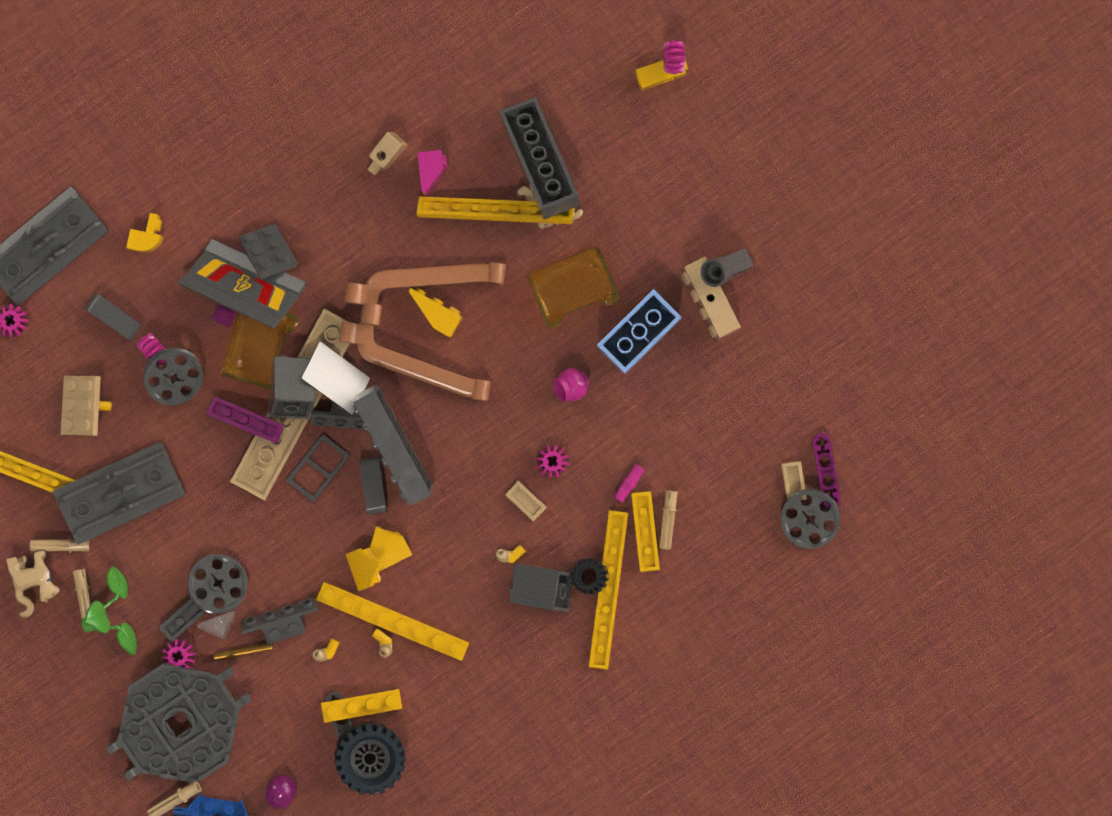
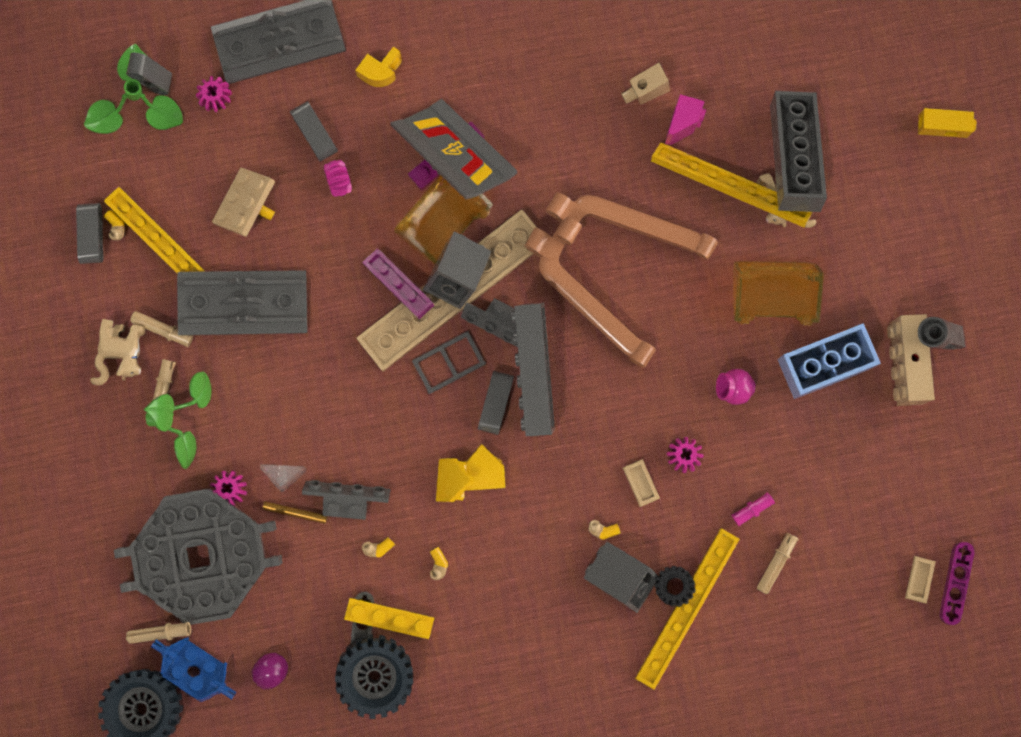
camera: 20 degrees right, 5 degrees down
(169, 369) = (346, 220): dark grey wedge -> none
(183, 618) = (256, 451): dark grey plate -> none
(220, 575) = (306, 426): dark grey wedge -> none
(267, 251) = (491, 129): dark grey plate -> none
(335, 377) = (504, 278): white sticker -> none
(392, 621) = (457, 546): yellow plate -> none
(439, 317) = (631, 265): yellow slope -> none
(645, 531) = (749, 565): yellow plate -> none
(674, 57) = (971, 109): dark pink gear -> none
(811, 509) = (933, 628): dark grey wedge -> none

